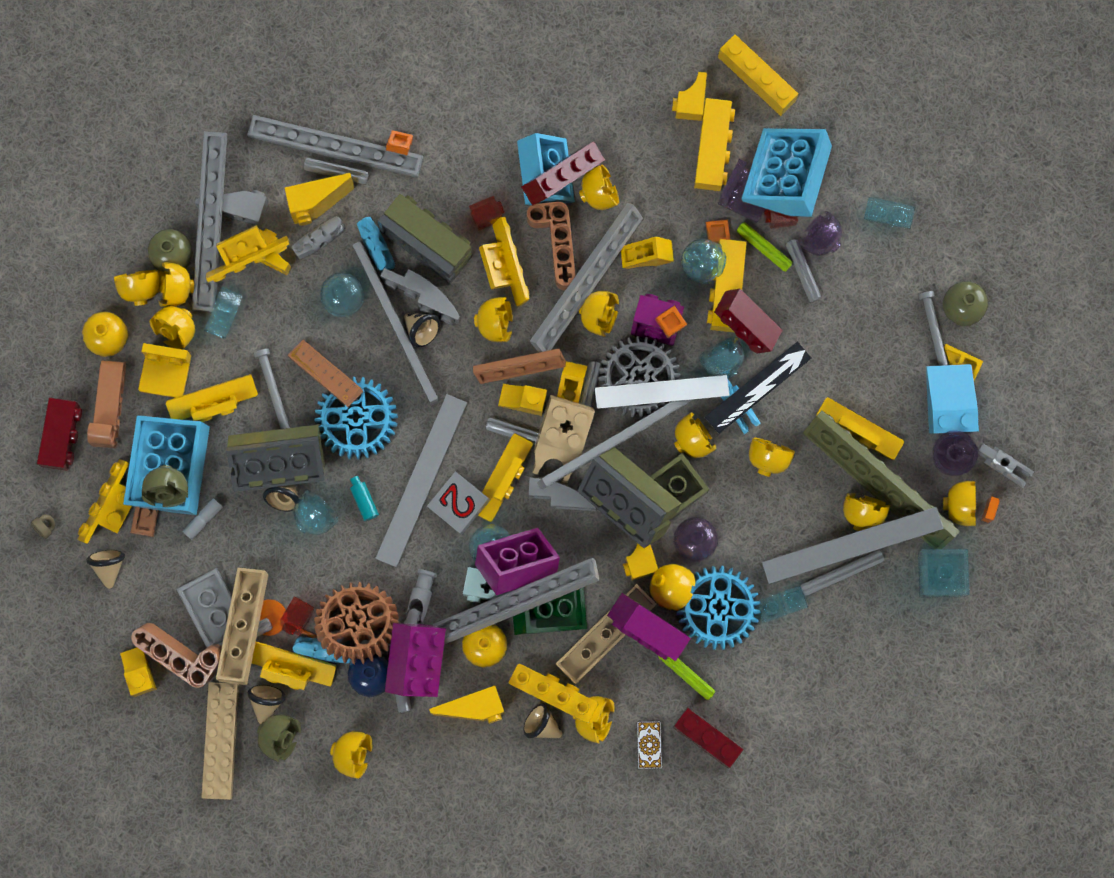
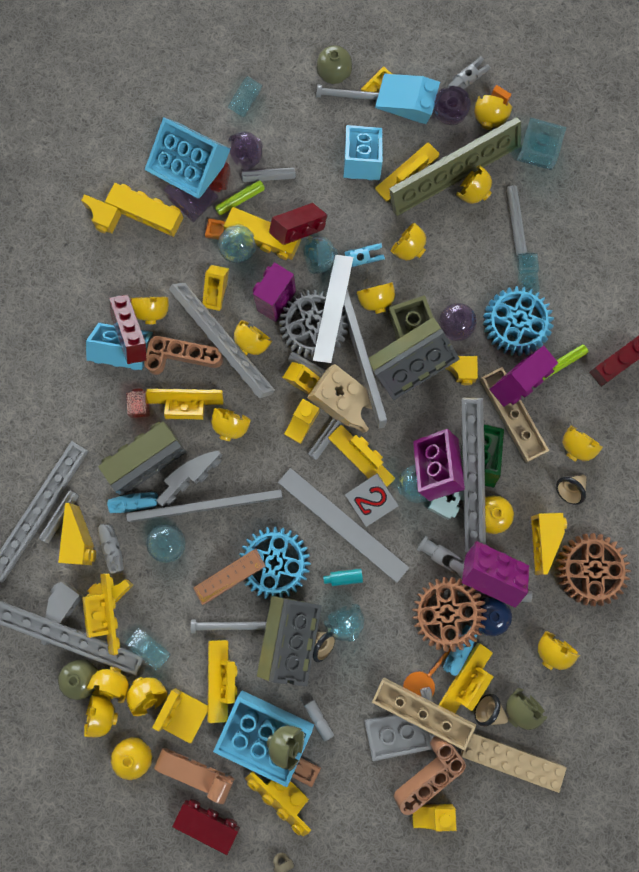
camera: 65 degrees left, 0 degrees up
(106, 565) = (339, 817): tan hat -> none
(296, 616) = (427, 664): clear red brick -> none
(399, 142) = (53, 456): orange tile -> none
(422, 328) = (216, 485): tan hat -> none
(440, 743) = (602, 566): none -> nougat gear
(519, 366) = (275, 415): nougat tile -> none
(550, 691) = (558, 464): yellow bracket -> none
(560, 496) = (394, 414): light grey slope -> none
(649, 745) = (611, 408): tile -> none
(671, 321) = (283, 275): orange tile -> none
(672, 586) = (493, 349): yellow cylinder -> none
(757, 75) = (100, 158): yellow brick -> none
(758, 387) = (352, 236): black sticker -> none
(853, 545) = (502, 200): light grey tile -> none
(865, 369) = (363, 153): none -> medium azure slope

